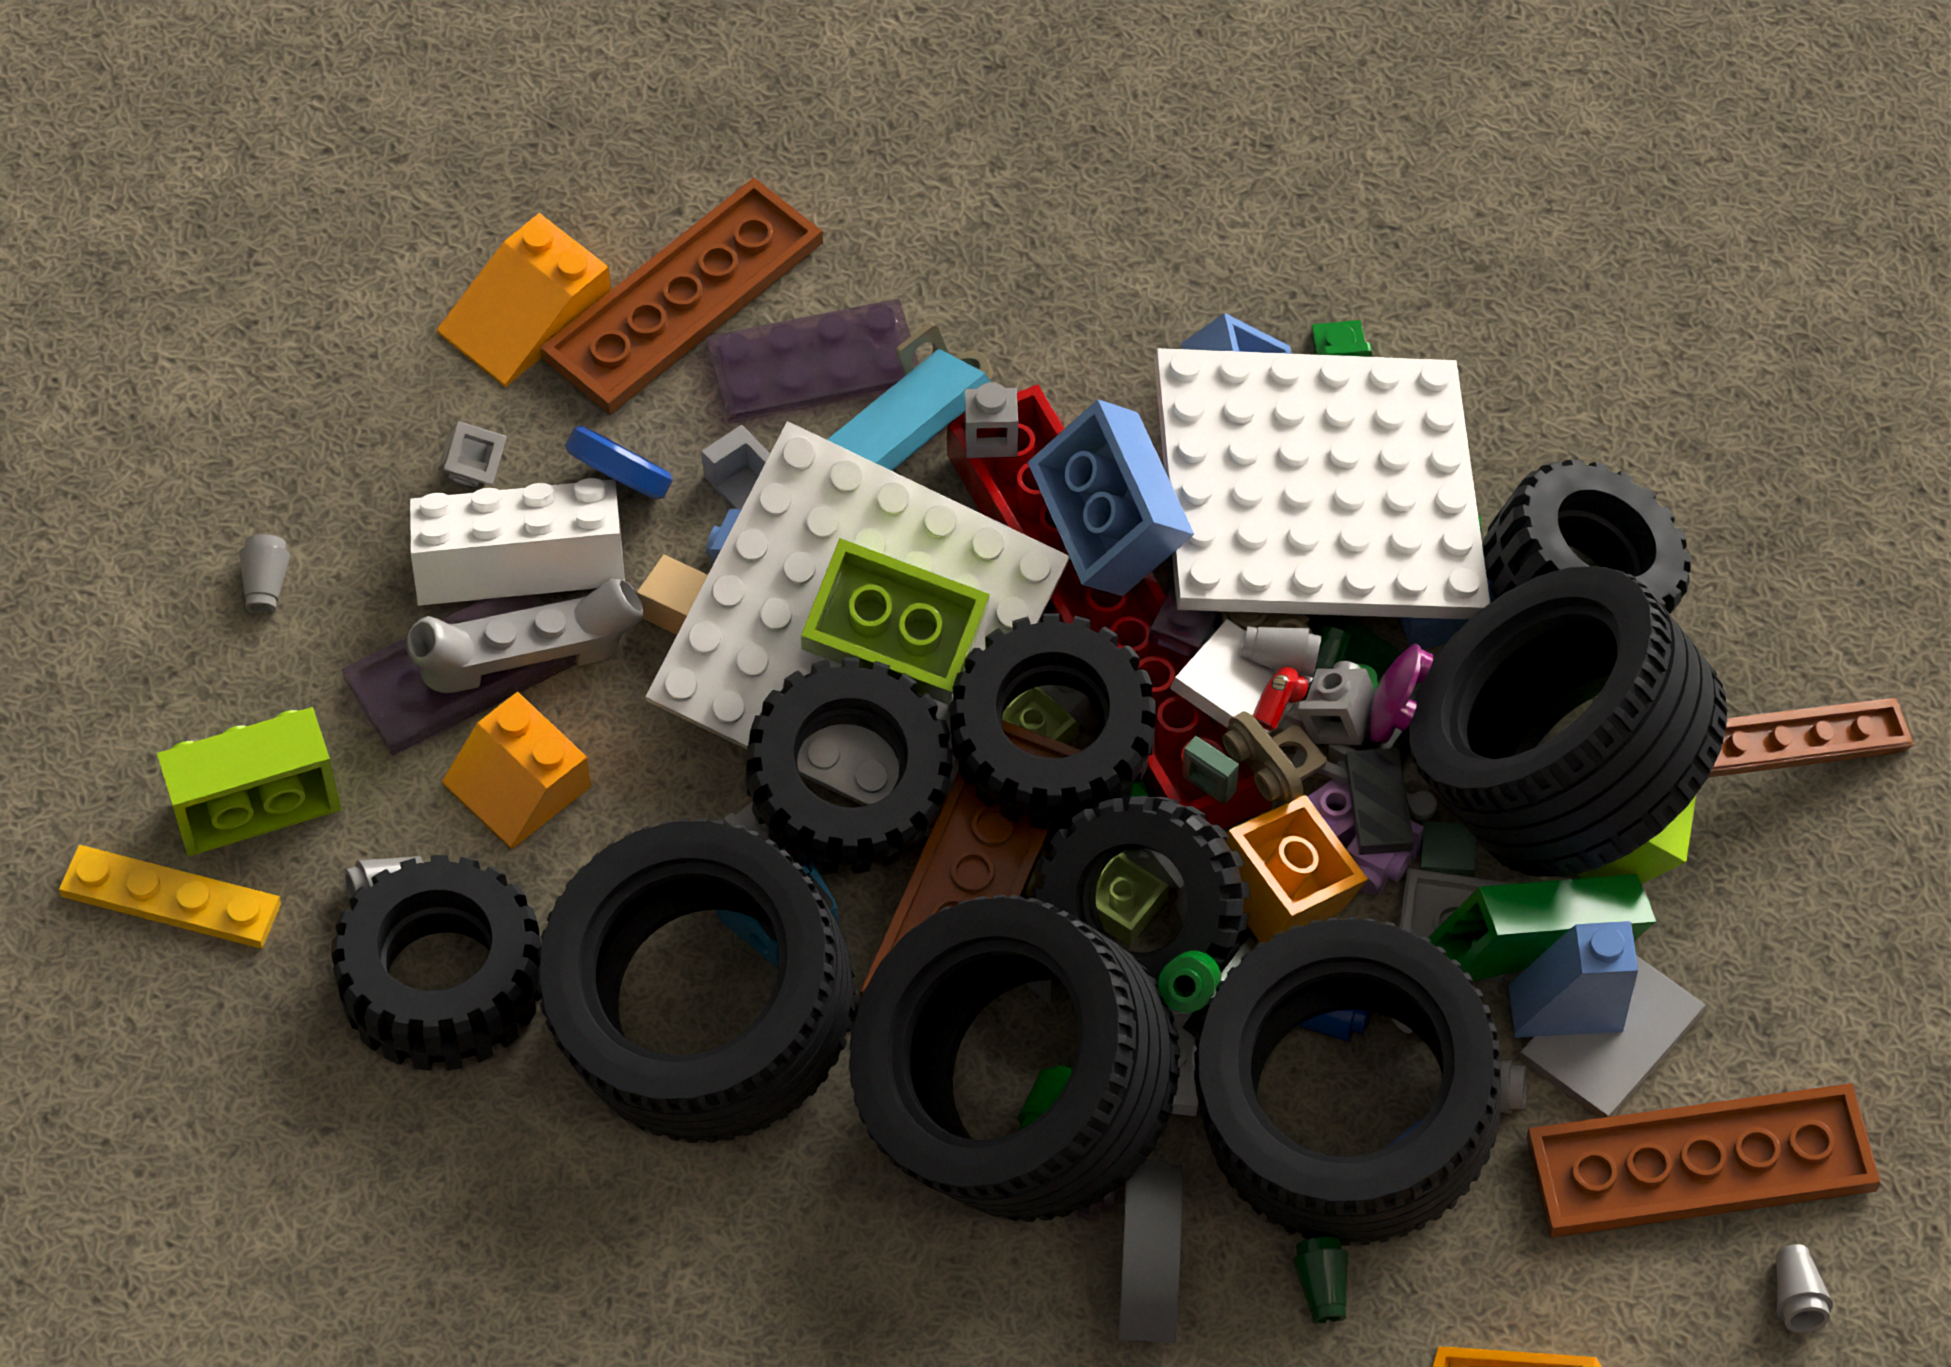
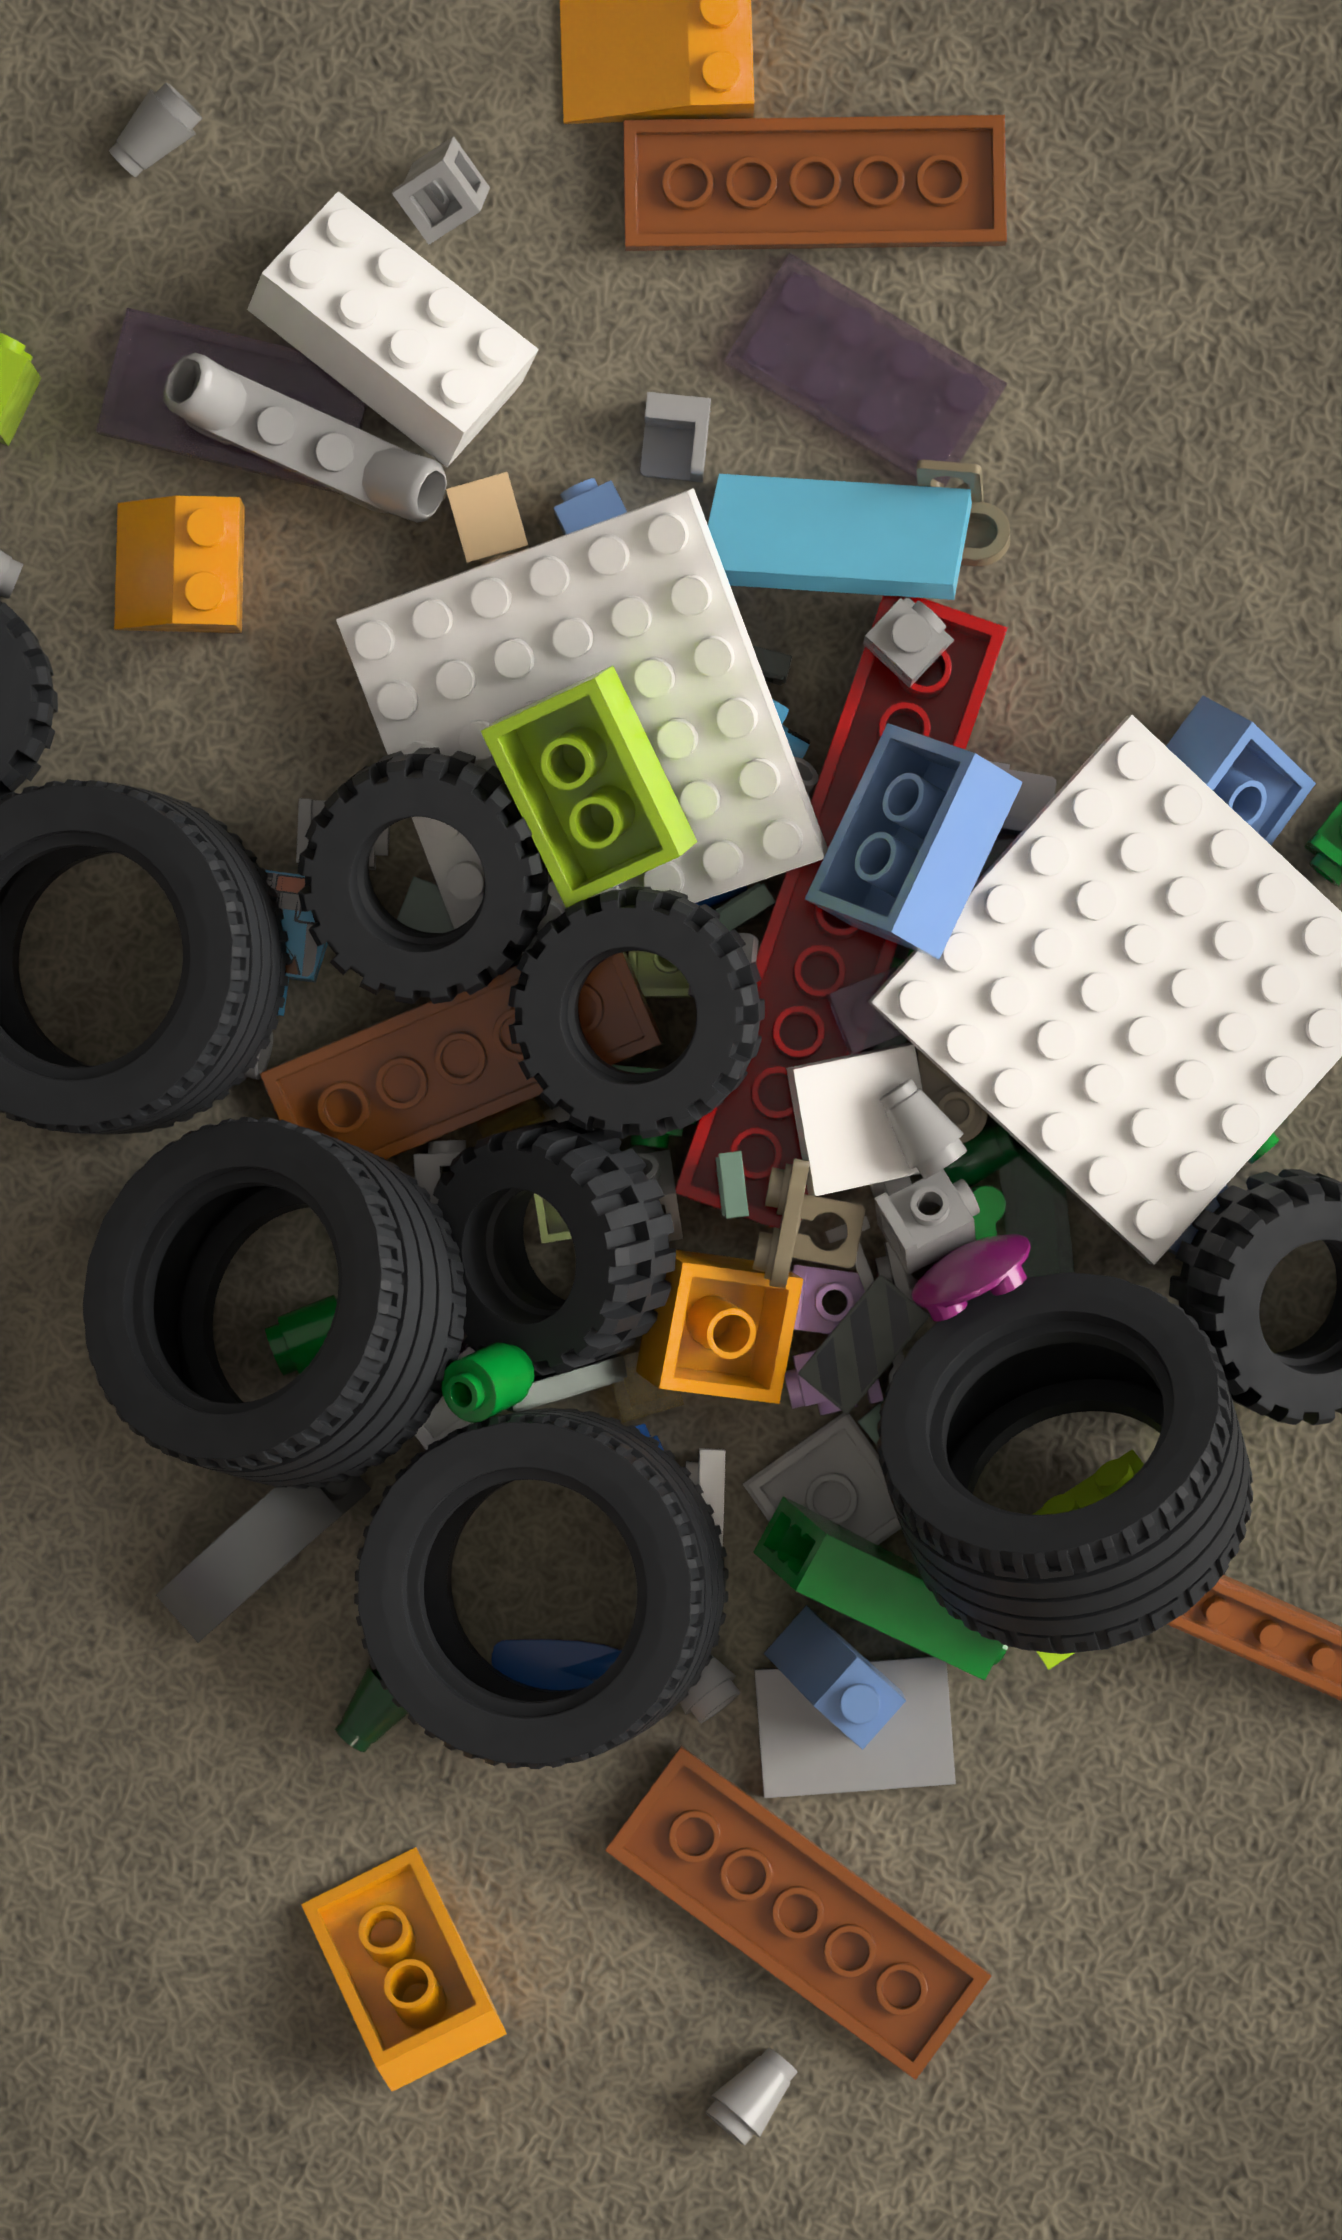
camera: 45 degrees right, 30 degrees up
(618, 462) = (561, 331): blue wheel -> none
(1282, 688) = (881, 1167): red arm -> none

